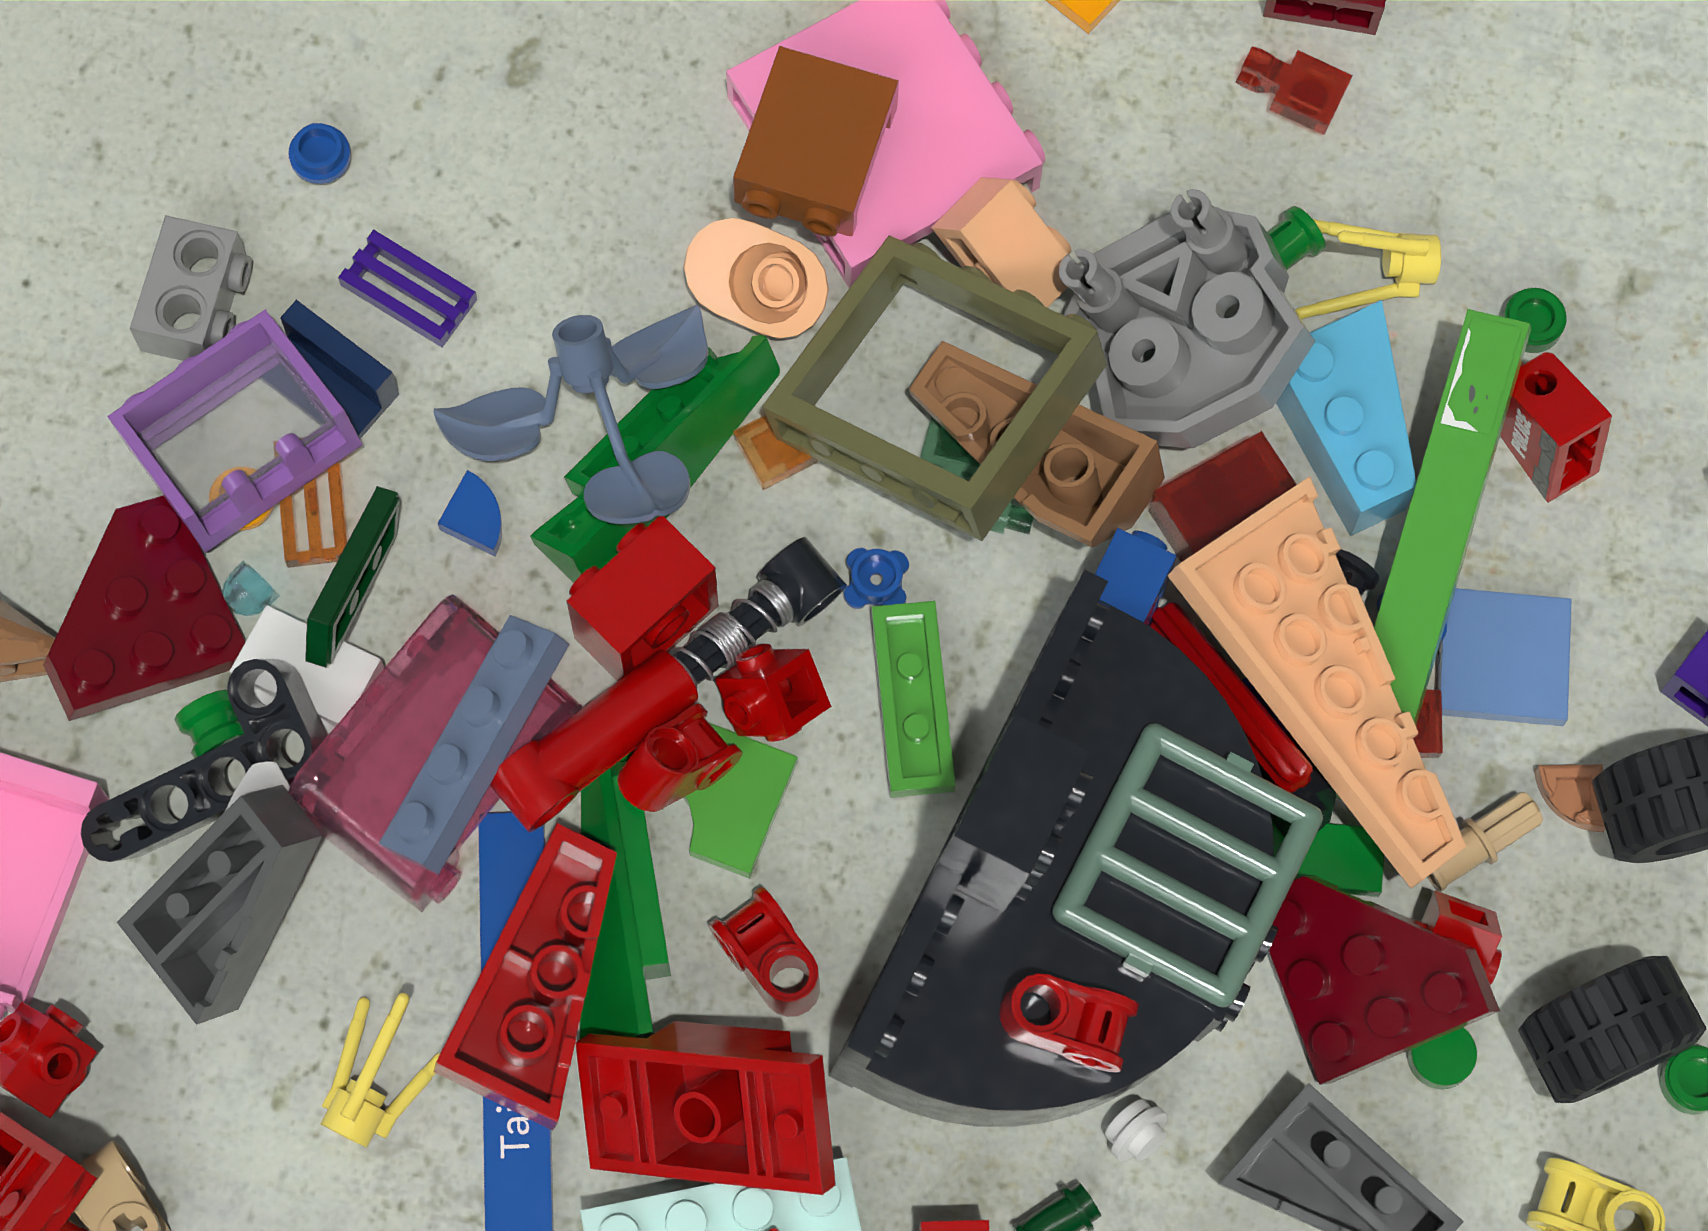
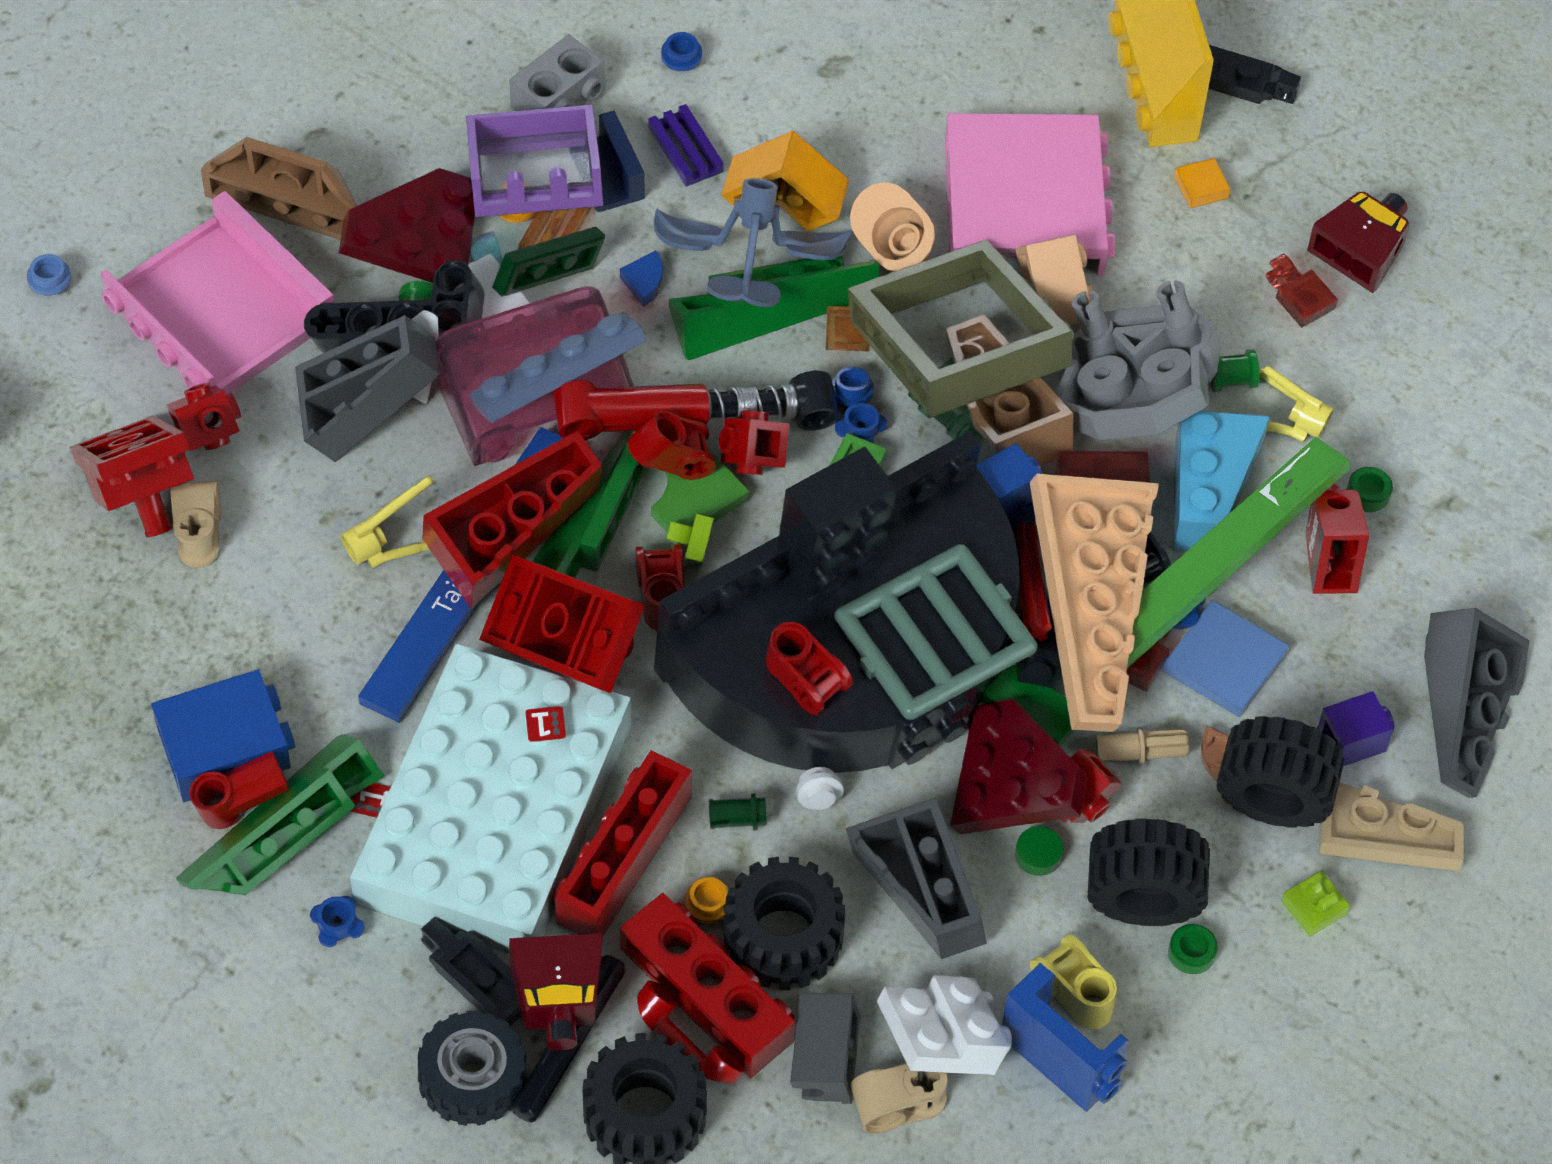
camera: 30 degrees right, 15 degrees down
(580, 272) = (806, 182): none -> light orange brick
(642, 598) = (711, 349): red brick -> none
(774, 870) = (695, 537): none -> lime tile
(814, 142) = (971, 165): dark orange panel -> none
(836, 532) = (853, 386): none -> blue plate

